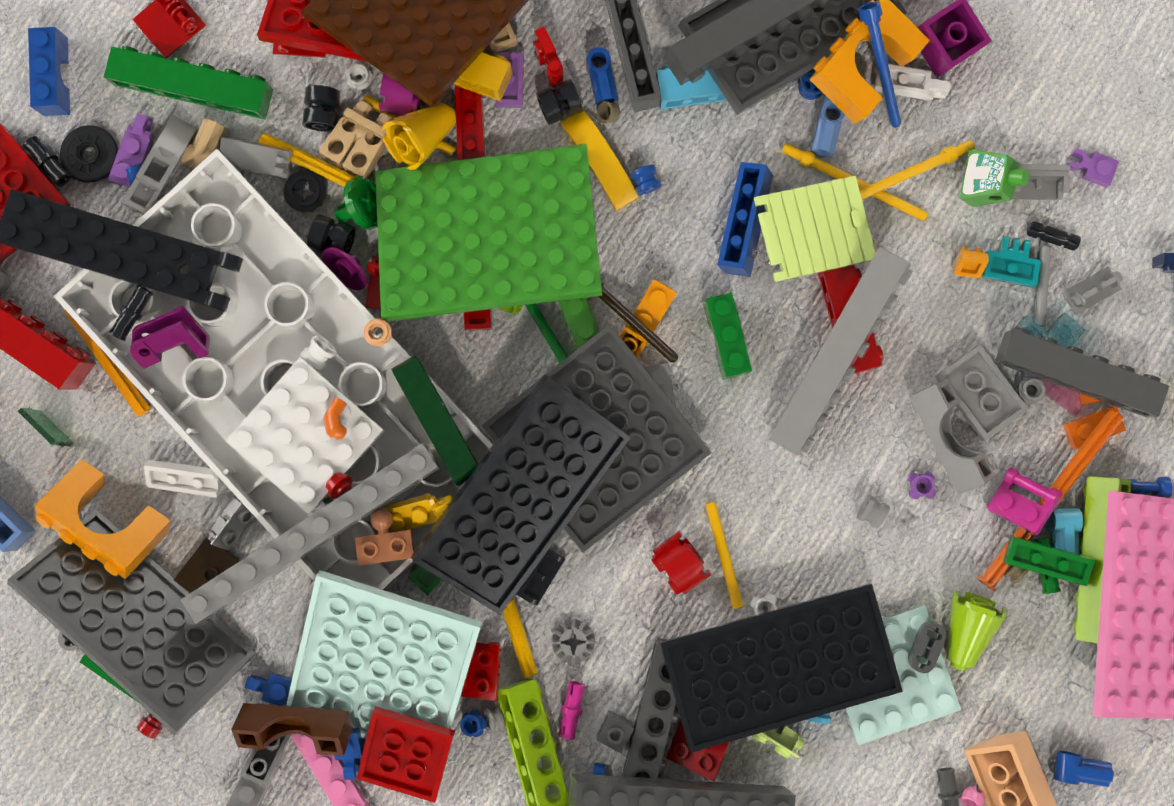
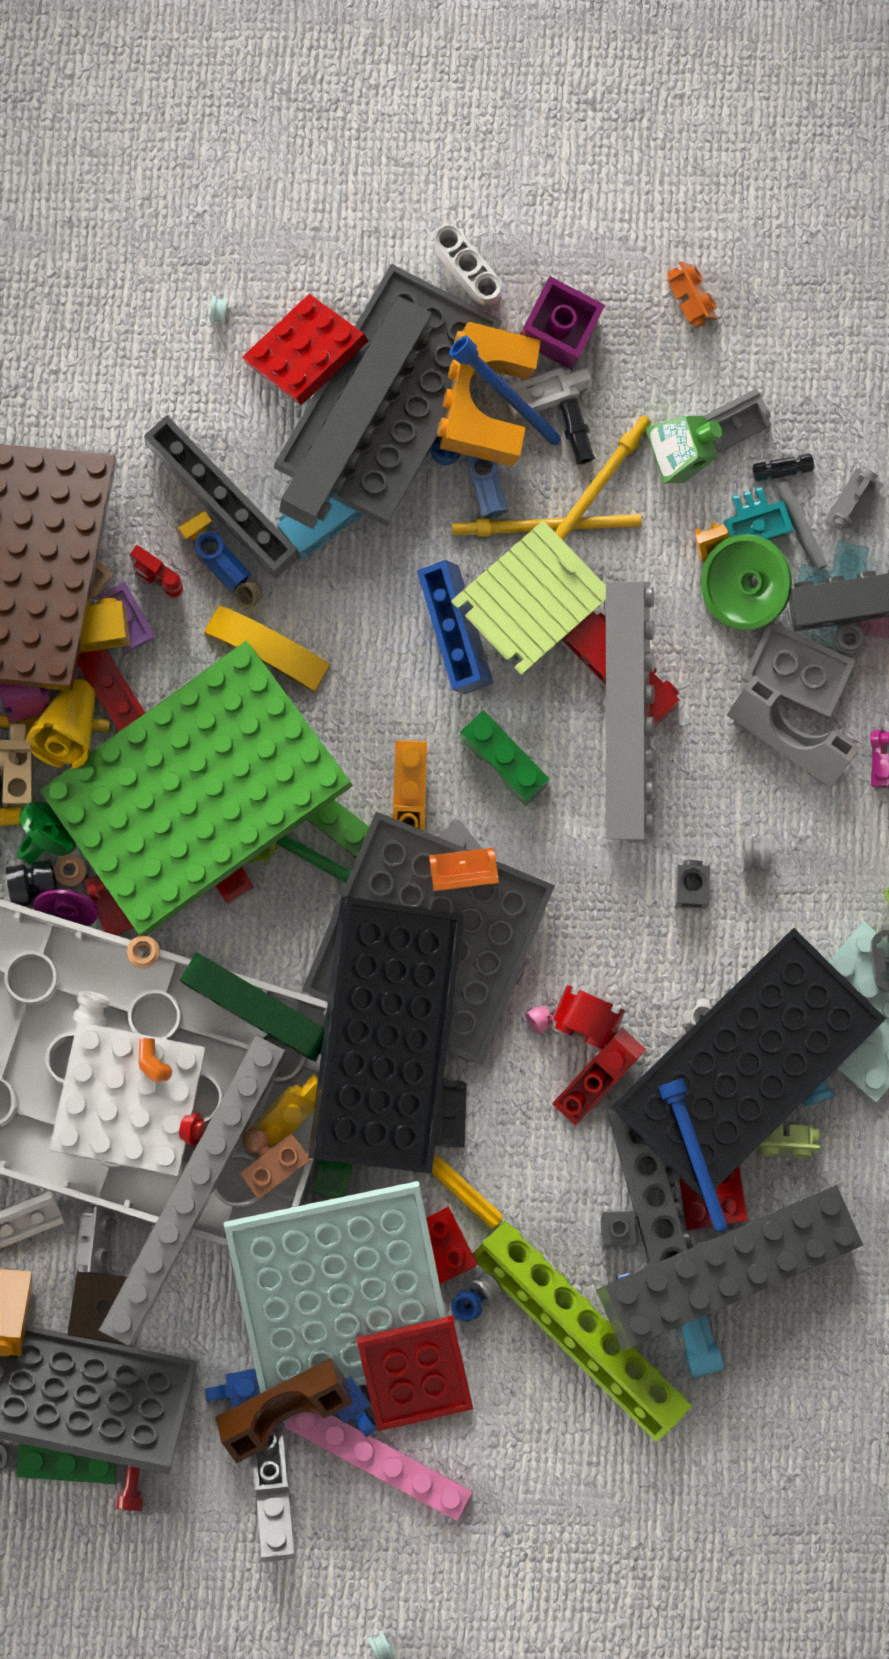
camera: 30 degrees left, 5 degrees down
(365, 250) = (74, 879): none -> light nougat plate
(549, 102) = (191, 623): black wheel -> none
(564, 631) = (519, 1178): light grey gear -> none
(571, 710) = (561, 1234): dark pink pin -> none
(596, 40) = (194, 526): none -> yellow plate
(638, 326) = (407, 798): dark brown piece -> none
(644, 542) = (539, 1019): none -> bright pink hinge
(646, 179) = (328, 642): blue wheel -> none
(650, 403) = (463, 869): none -> orange hinge
(665, 610) = (599, 1076): none -> red slope
(712, 662) = (675, 1094): none -> blue piece
(724, 555) = (629, 986): yellow bar -> none
(801, 511) = (692, 899): none -> dark grey brick
(915, 125) = (576, 431): none -> black pin
(929, 485) = (801, 801): medium lavender plate -> none
(965, 296) = (728, 584): none -> bright green dish
(1057, 59) = (699, 304): none -> orange hinge
(1096, 168) = (790, 373): medium lavender plate -> none

